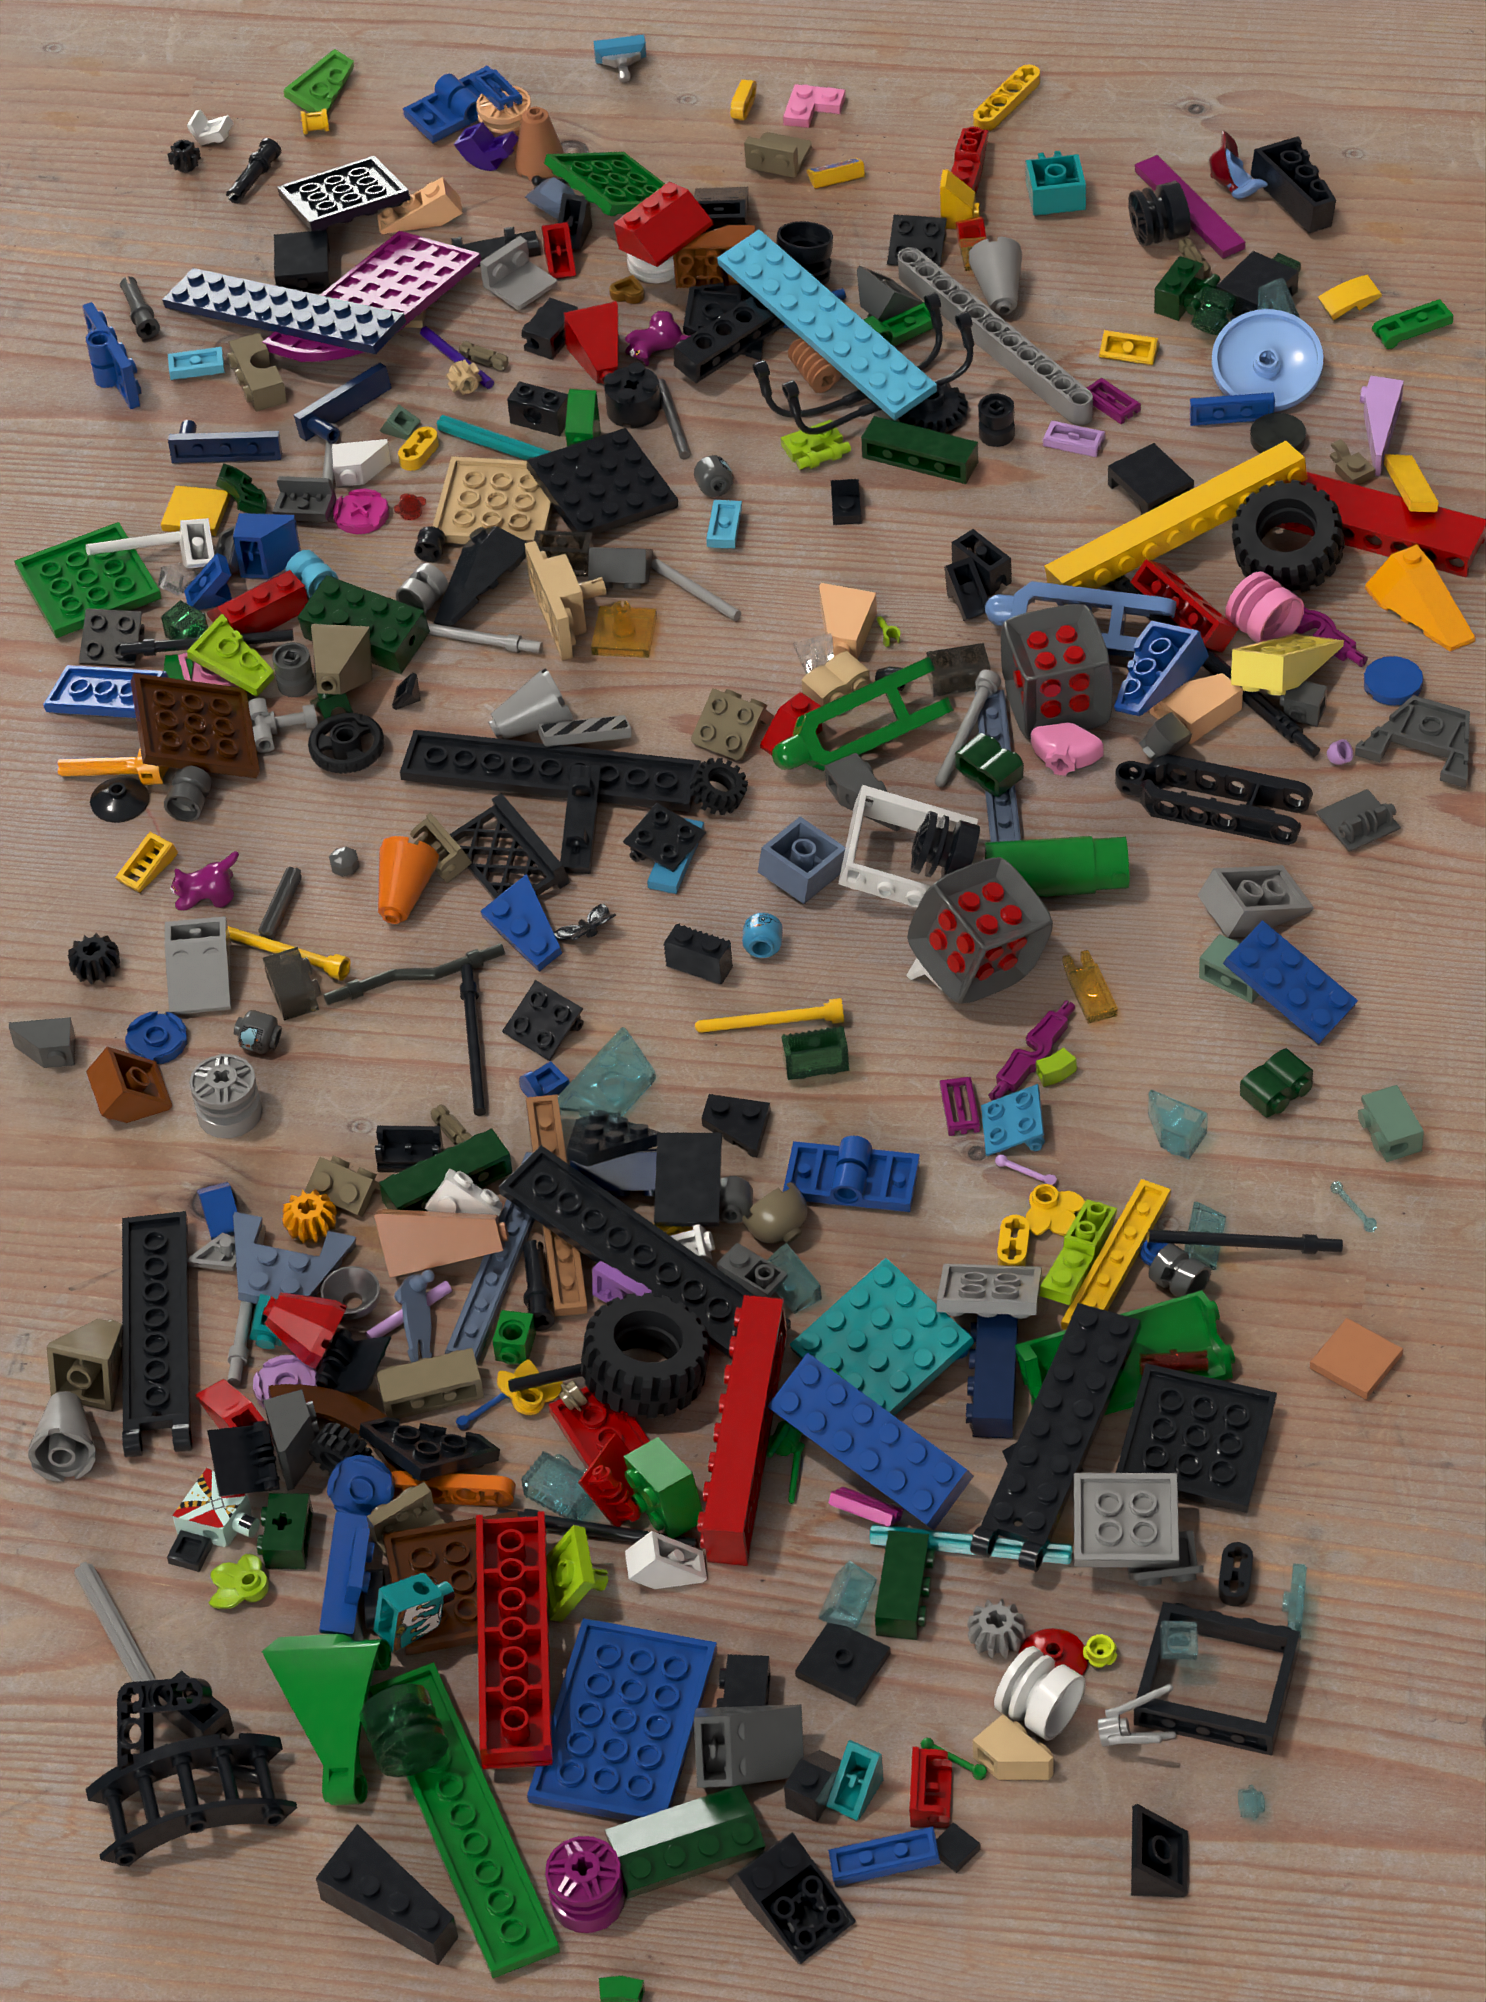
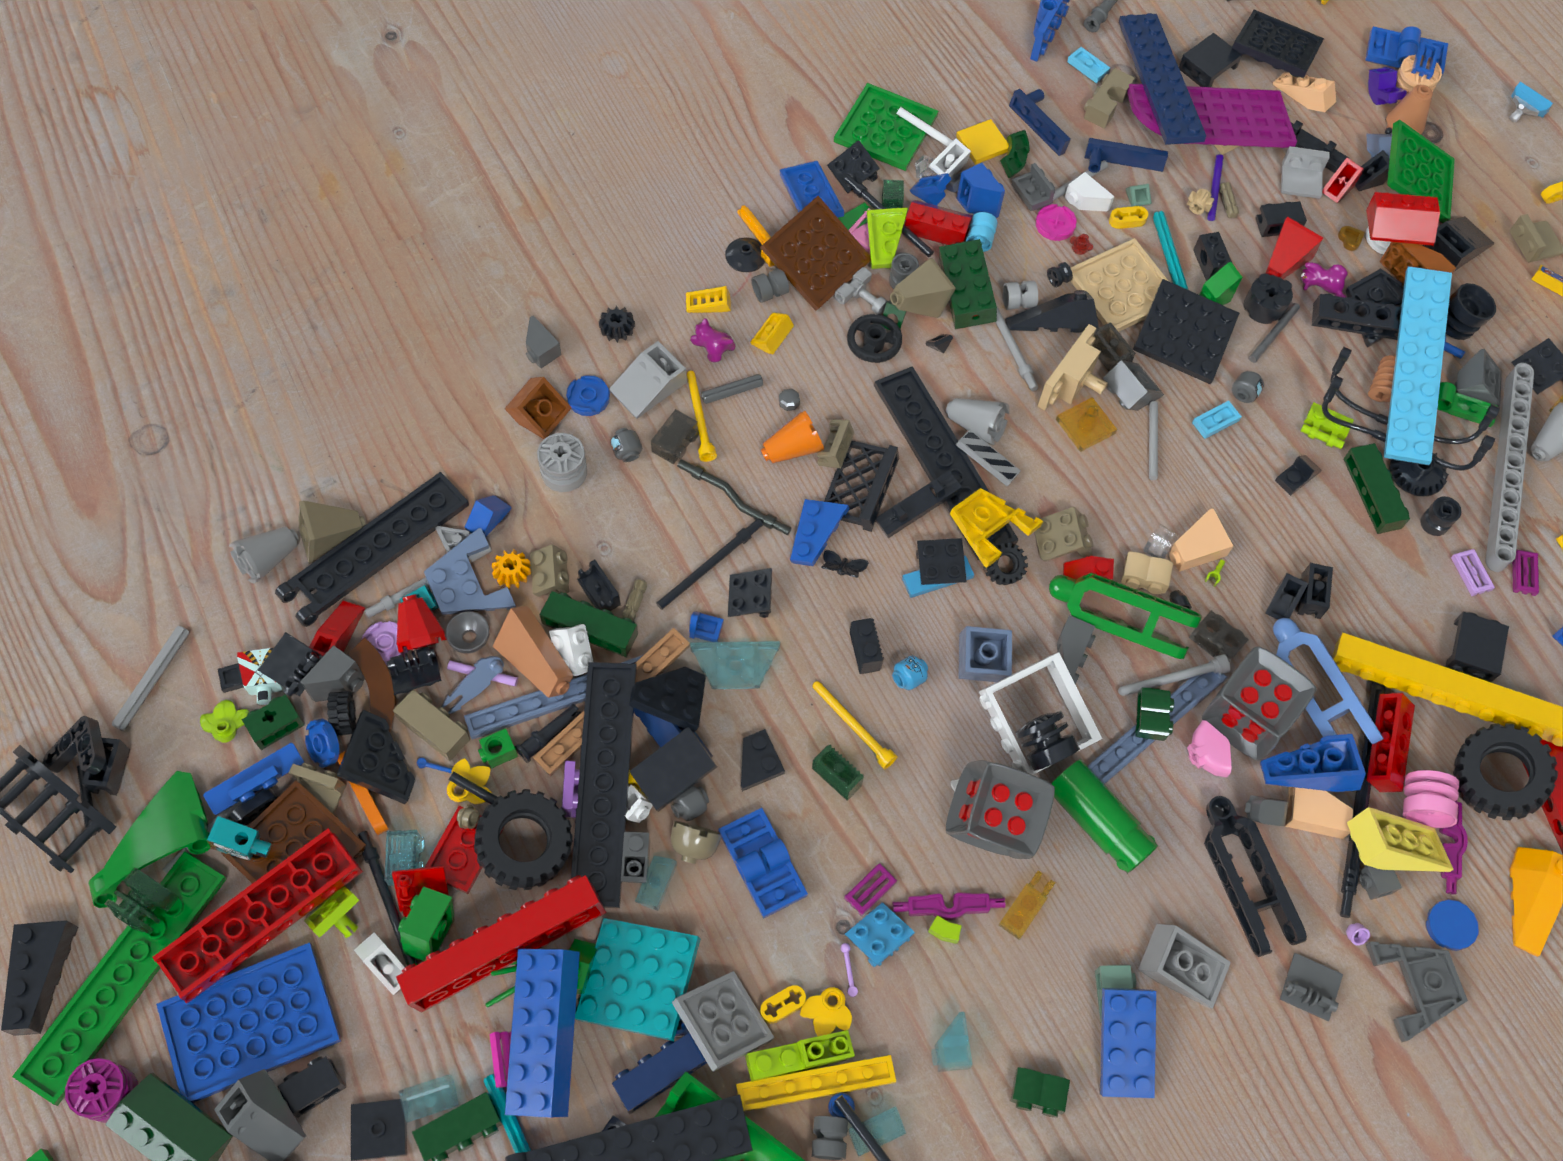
camera: 45 degrees right, 15 degrees up
(244, 829) = (773, 332): none -> yellow slope
(655, 767) = (984, 515): none -> yellow wing

